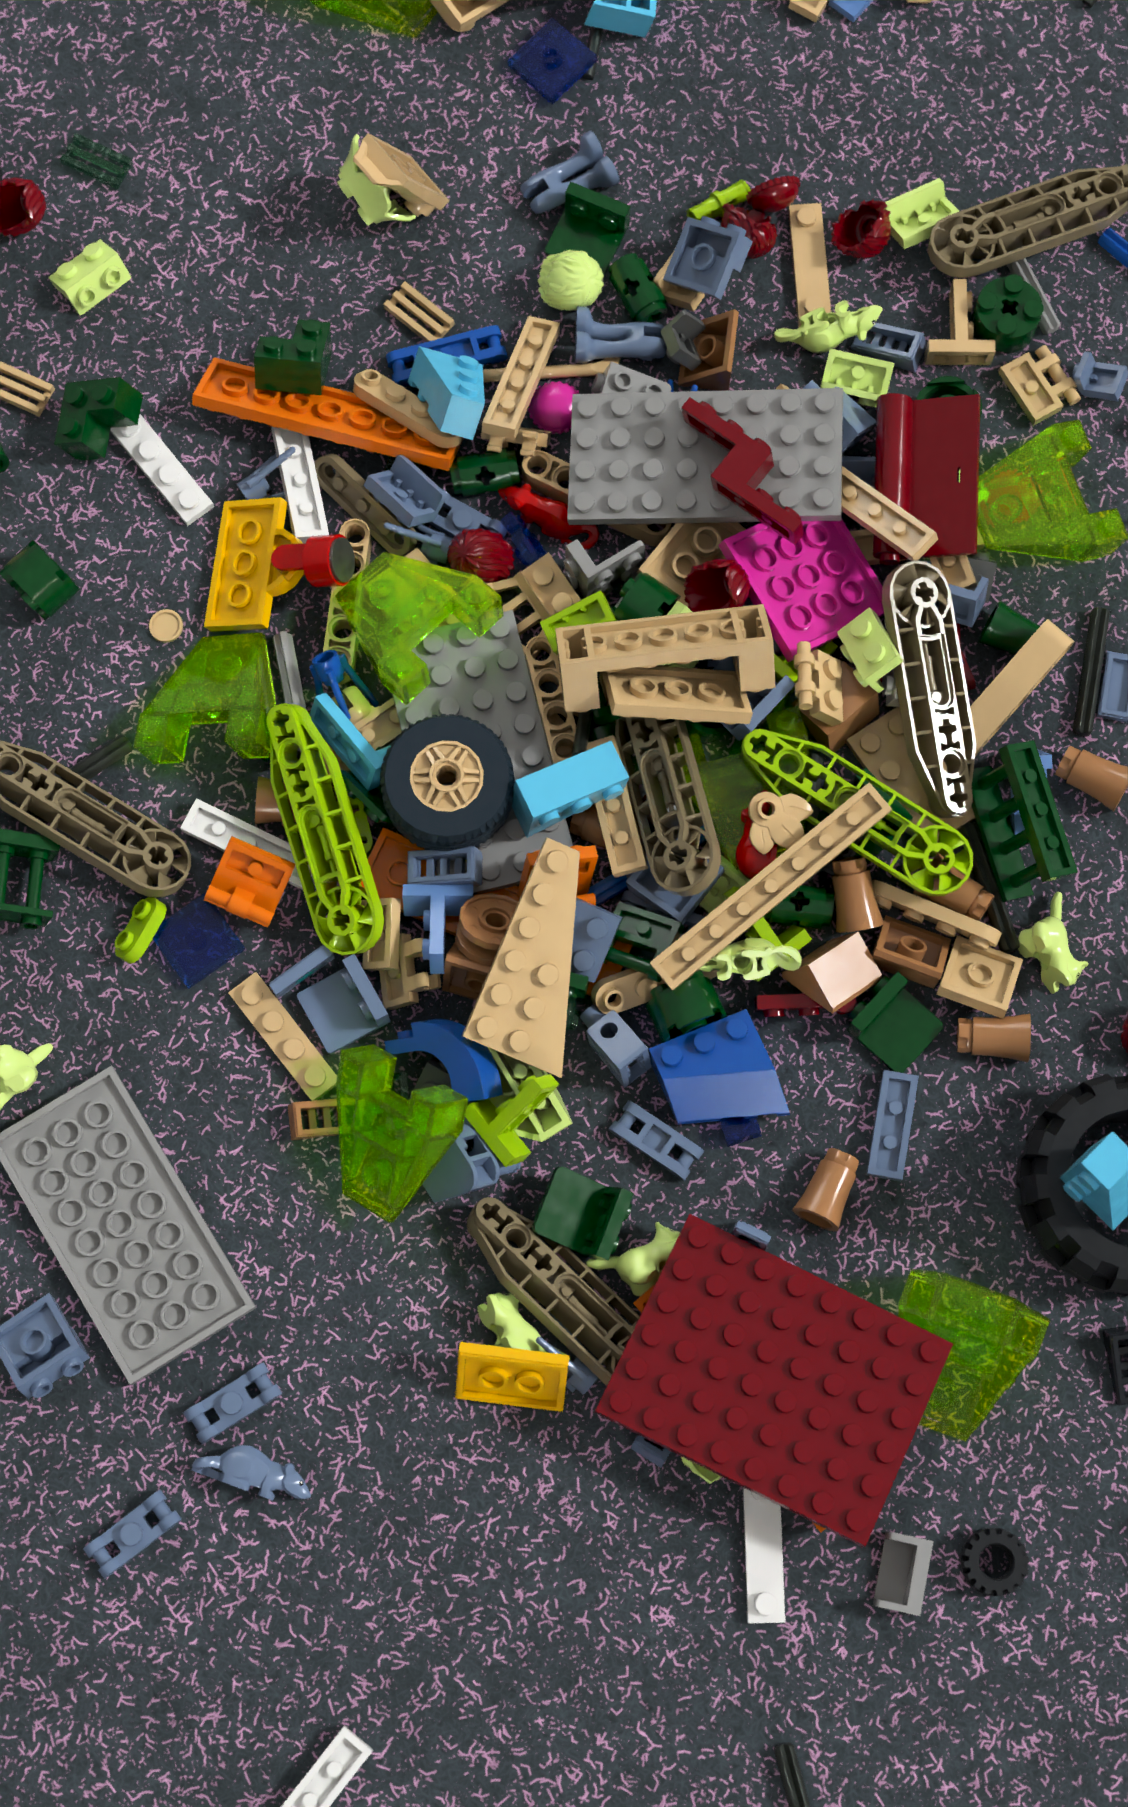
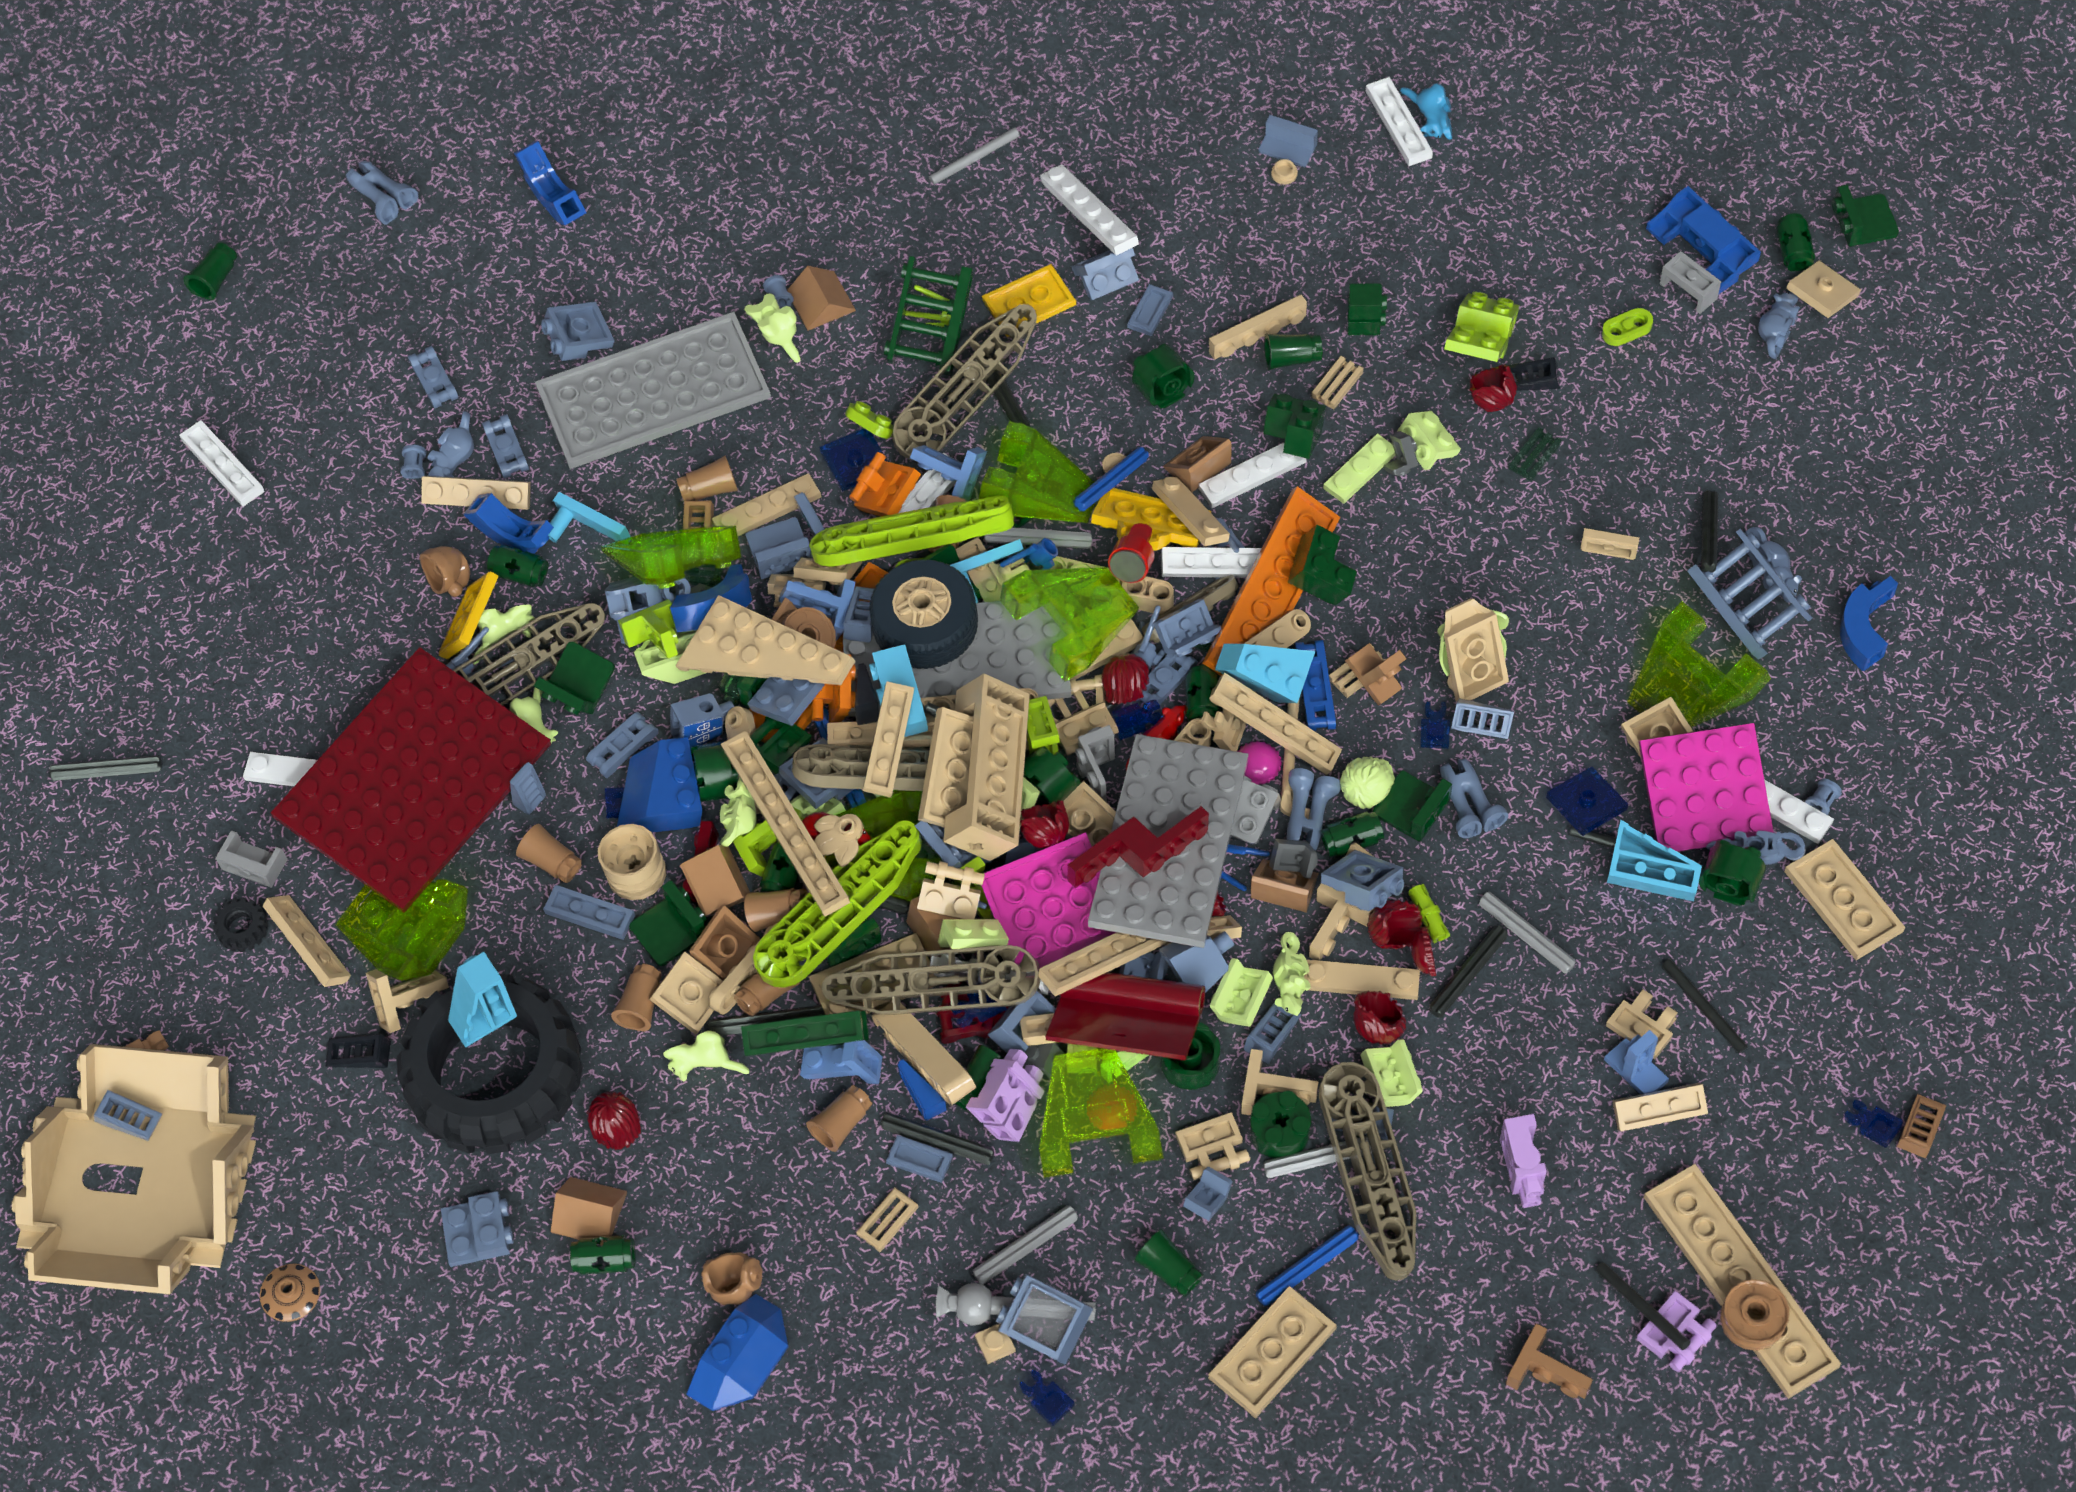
camera: 105 degrees right, 15 degrees down
(122, 295) = (1405, 450): none -> dark grey bracket
(139, 346) = (1360, 469): none -> yellowish green plate
(152, 525) = (1200, 461): none -> medium nougat slope
(198, 617) = (1111, 479): none -> blue axle
(210, 806) = (951, 469): none -> medium blue bracket
(215, 67) = (1609, 544): none -> tan tile
(236, 516) = (1190, 511): none -> tan plate
(259, 1115) = (707, 481): none -> medium nougat plant
(275, 1522) = (413, 462): none -> sand blue bush
(313, 1423) = (465, 490): none -> tan plate
(332, 1292) = (570, 508): none -> medium azure piece
(367, 1357) = (505, 527): none -> blue arch
(414, 1350) = (532, 566): none -> dark green piece
(432, 278) = (1375, 674): none -> medium nougat bracket
(444, 1428) = (445, 570): none -> medium nougat piece
(457, 191) = (1460, 725): none -> slope
(485, 225) = (1435, 730): none -> clear blue plate
(578, 830) = (865, 699): none -> black slope
(651, 773) = (888, 739): none -> tan plate
(721, 107) = (1527, 932): none -> light grey axle
(752, 295) = (1335, 922): none -> tan bracket
(779, 159) = (1468, 971): none -> pearl dark grey axle
(840, 1064) = (632, 861): none -> tan wheel
(998, 73) = (1523, 1159): none -> lavender hips
(999, 1468) = (306, 940): none -> tan plate
(1039, 590) = (1008, 1096): none -> lavender hips
(1050, 690) = (925, 1097): none -> blue slope
(1066, 1331) = (400, 996): none -> tan bracket

